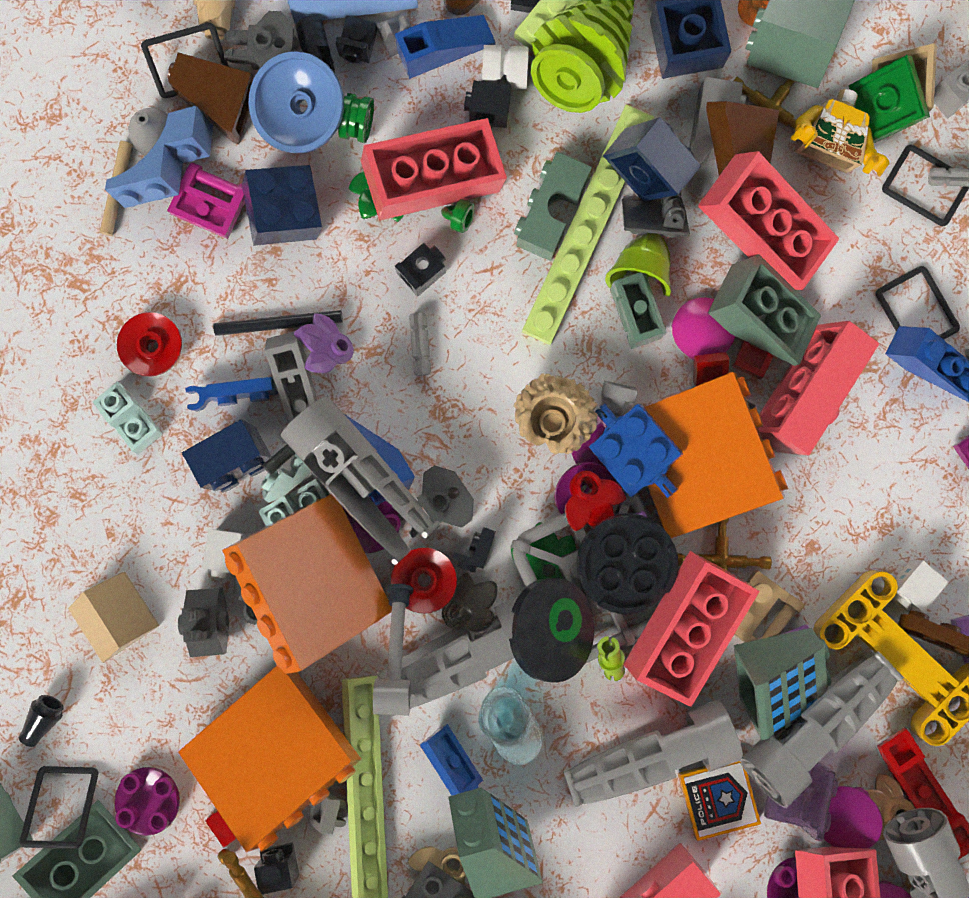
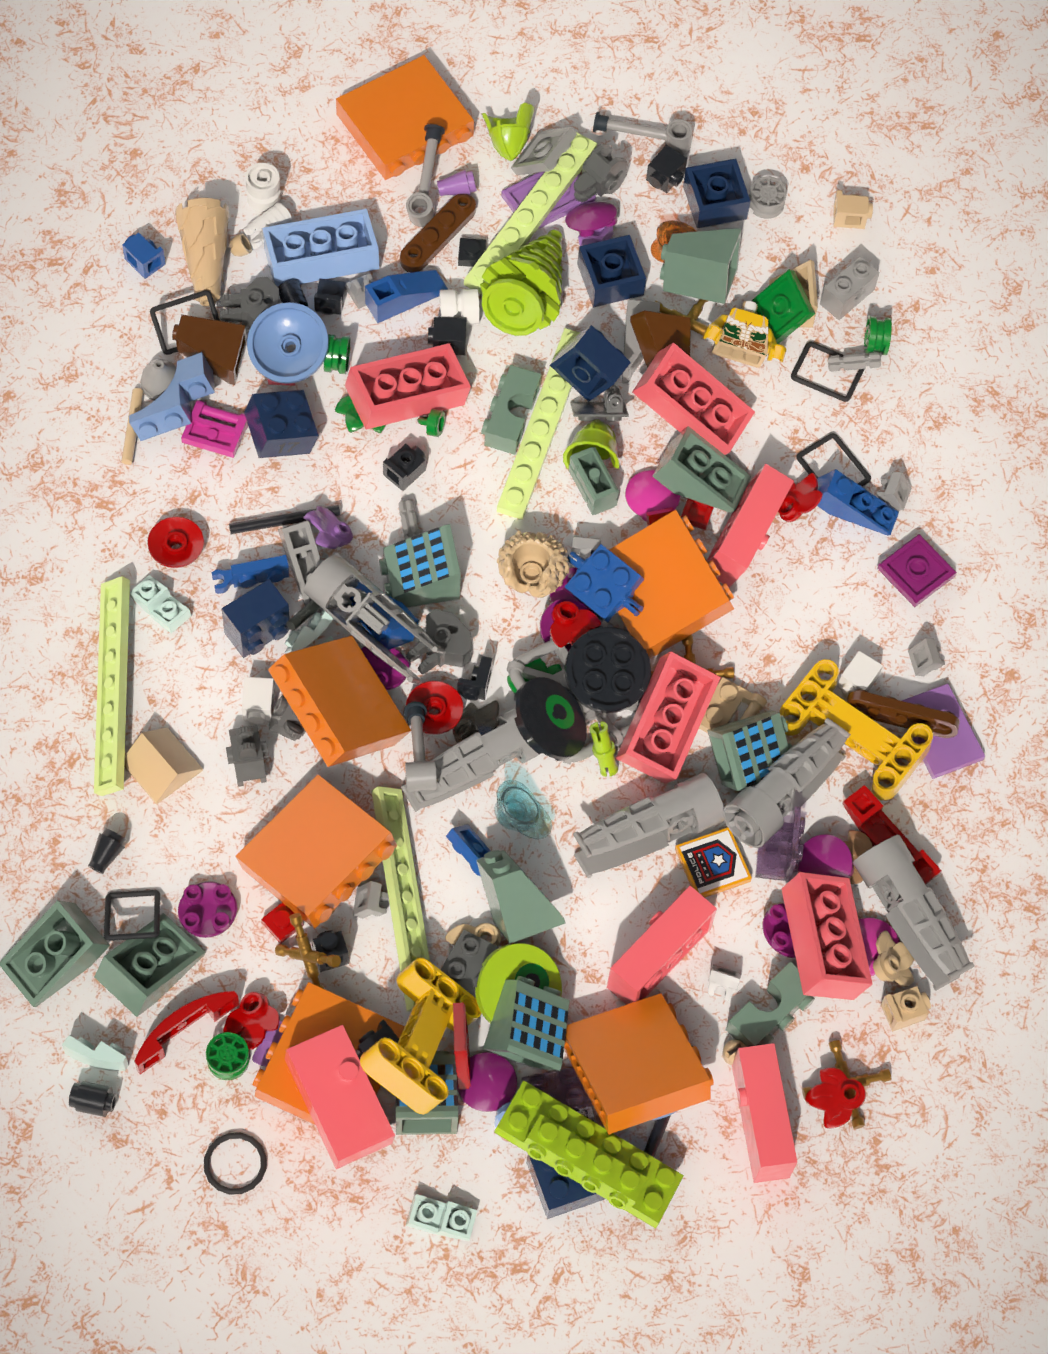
camera: 10 degrees left, 20 degrees down
(62, 519) = (112, 687): none -> yellowish green plate
(424, 407) = (422, 568): none -> sand green slope
(887, 356) = (800, 499): none -> red plate

